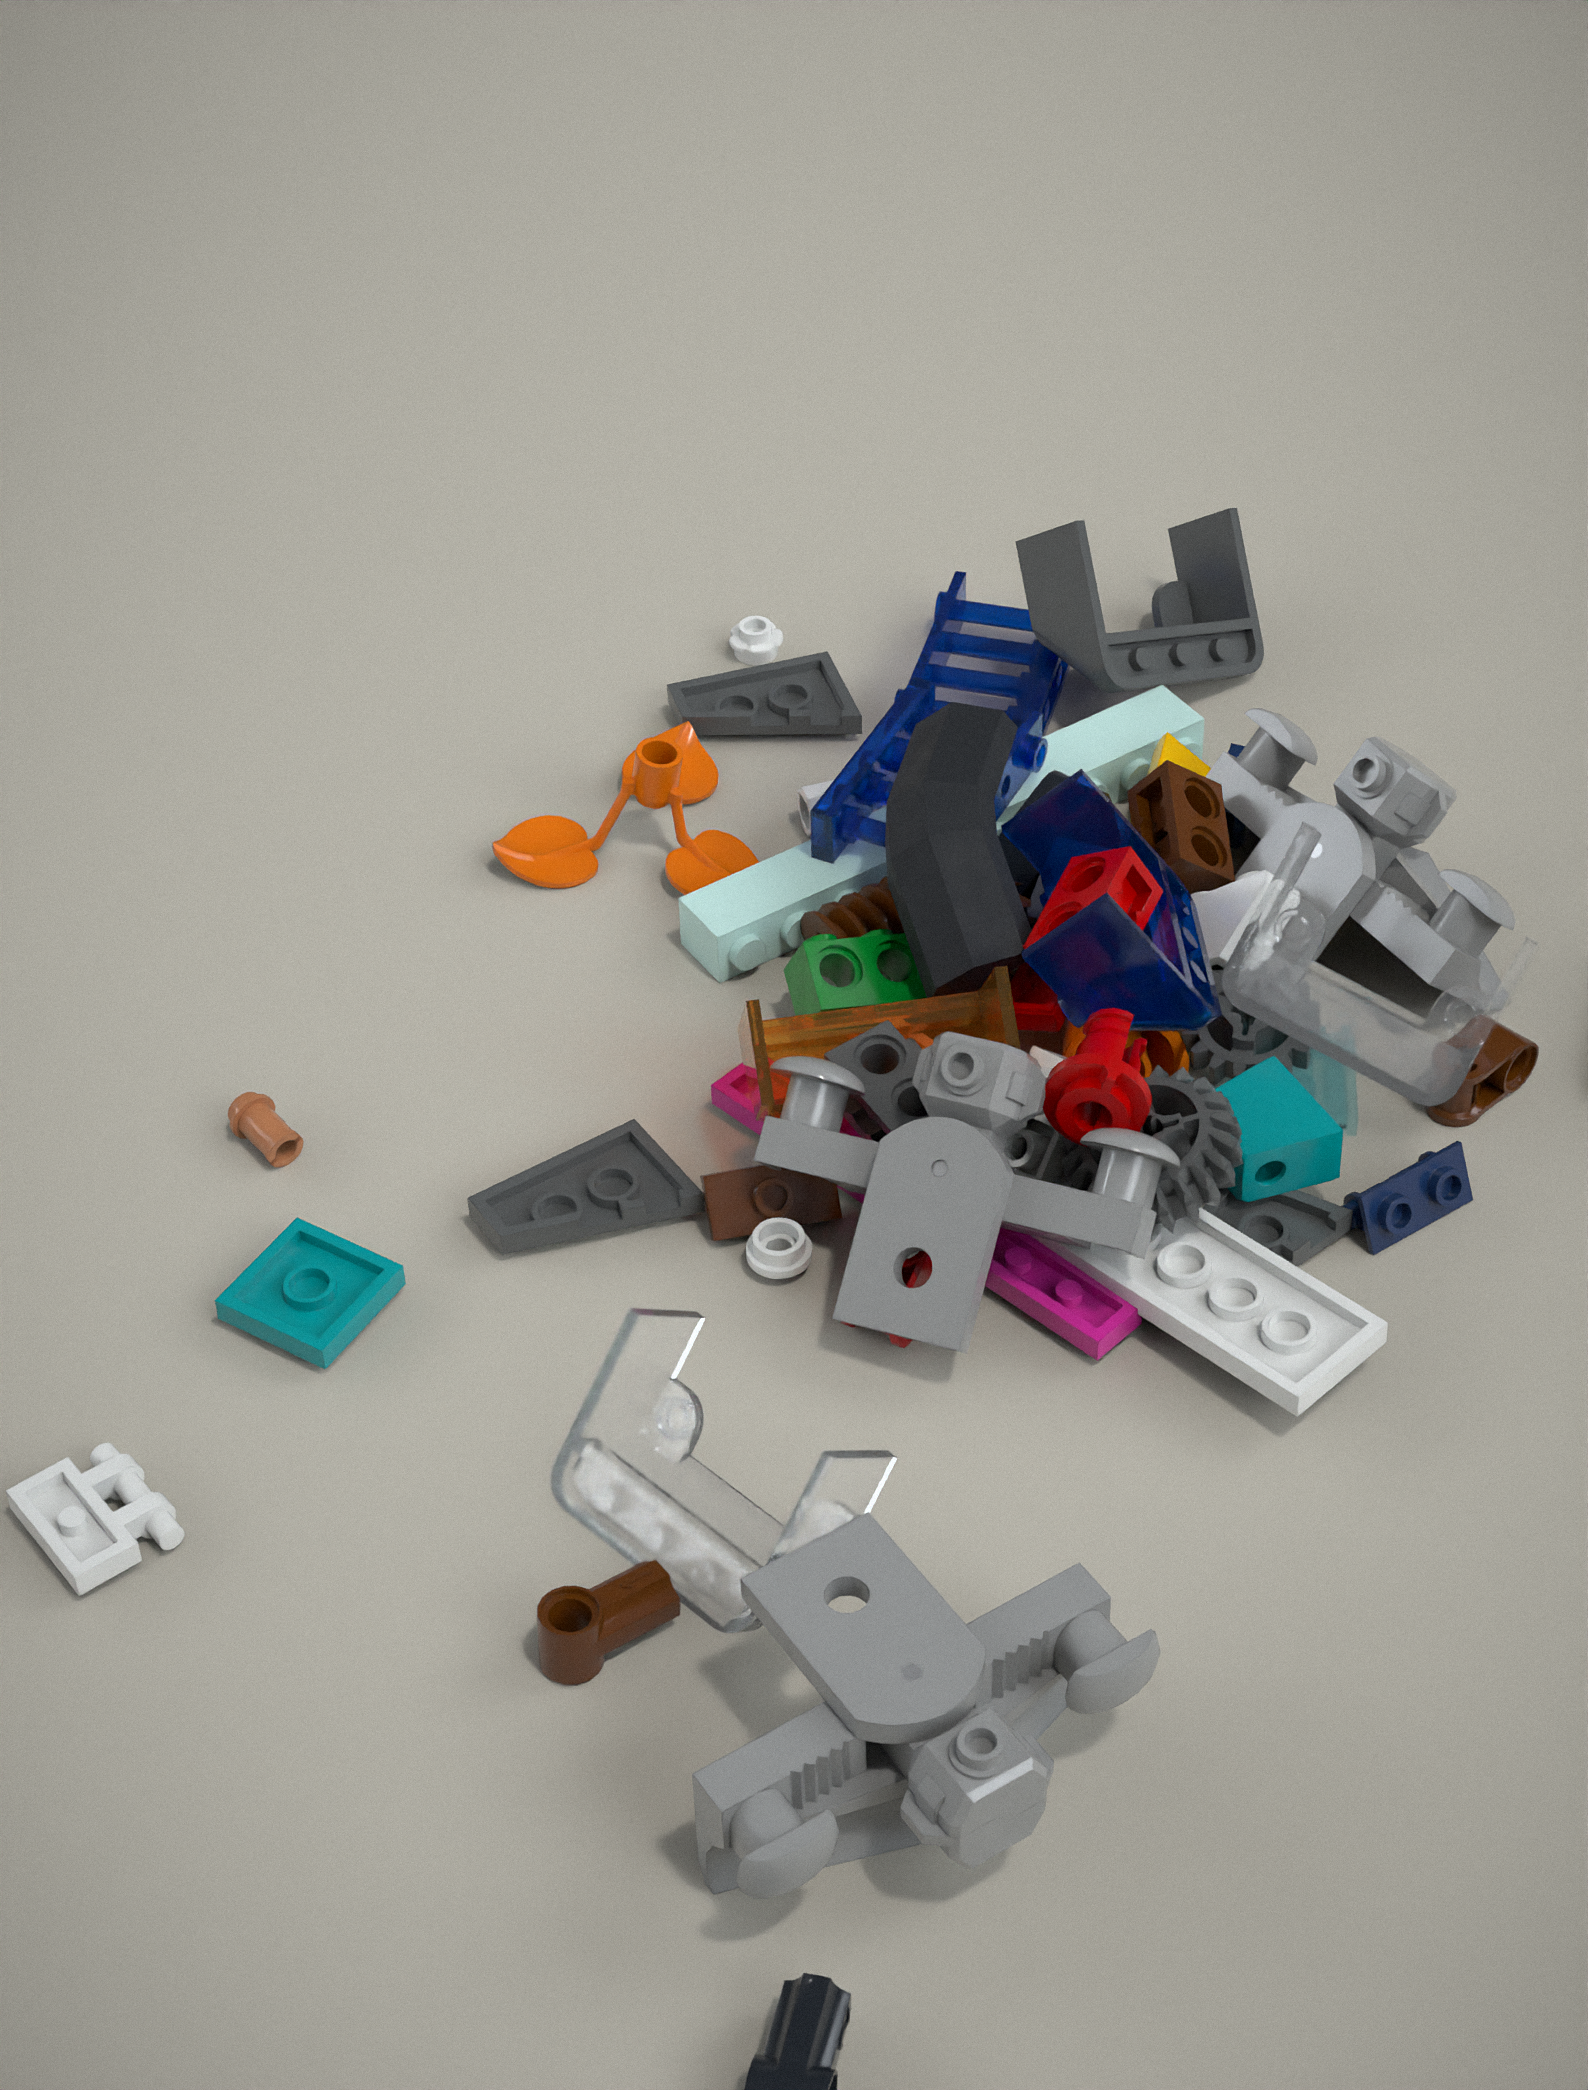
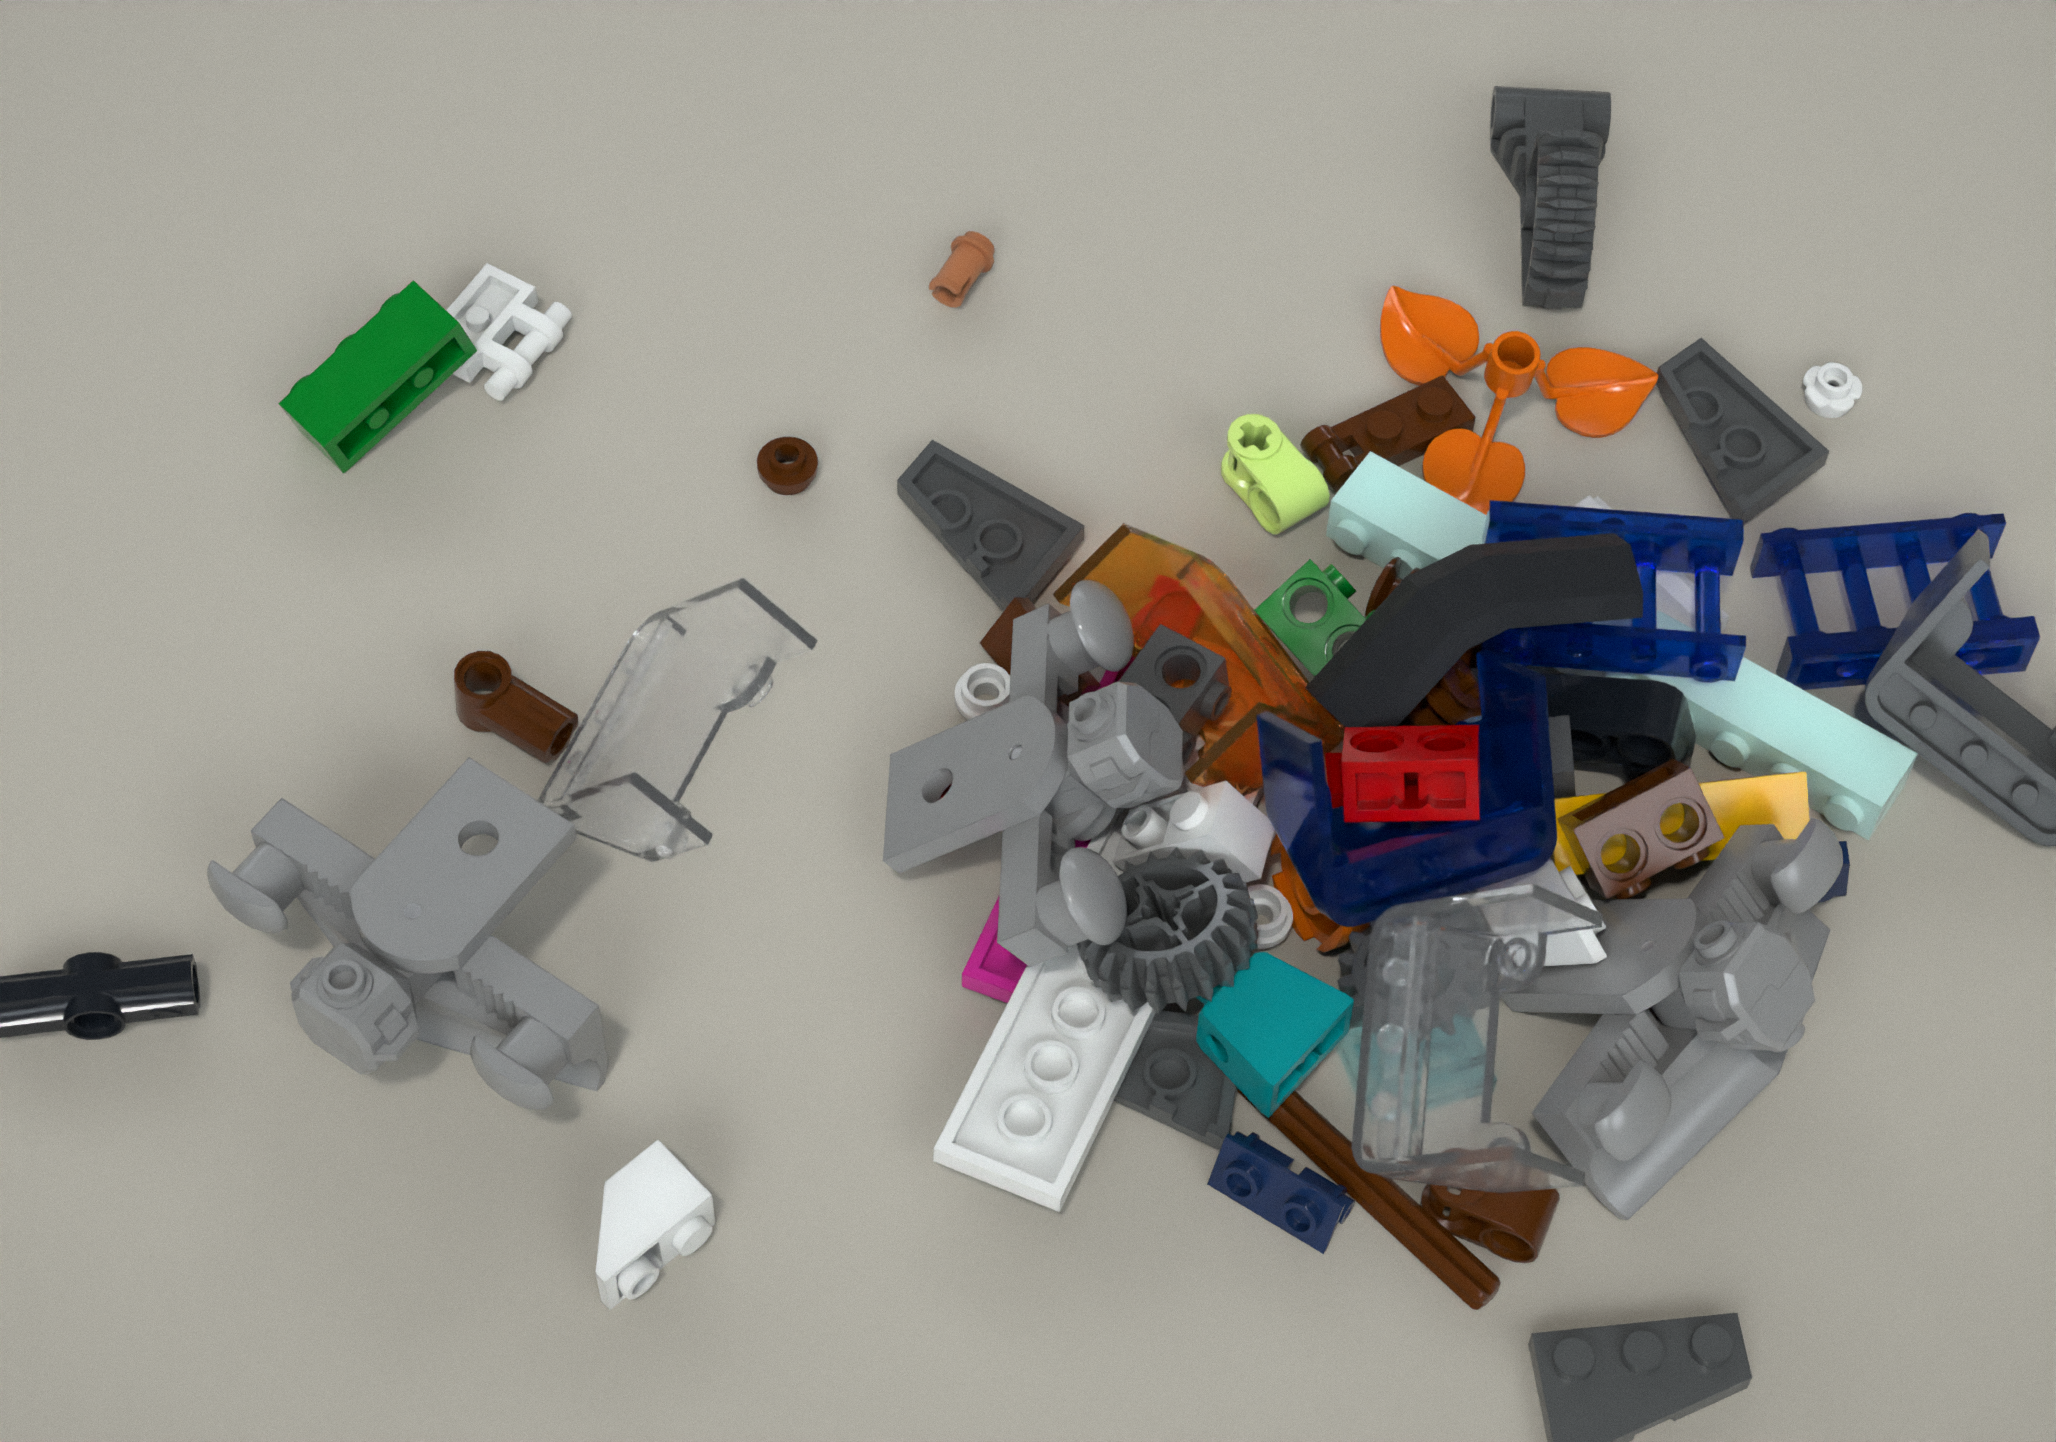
camera: 65 degrees right, 15 degrees up
(105, 1615) = (378, 376): none -> green brick
(310, 1292) = (786, 375): teal plate -> none
(419, 1325) = (792, 477): none -> reddish brown plate
(457, 716) = (1551, 155): none -> dark grey arm
(640, 904) = (1393, 430): none -> reddish brown plate
(651, 982) = (1271, 474): none -> yellowish green piece
(1100, 1081) = (1178, 844): red piece -> none
(1276, 1661) = (647, 1219): none -> white slope
(1471, 1127) = (1386, 1202): none -> reddish brown axle

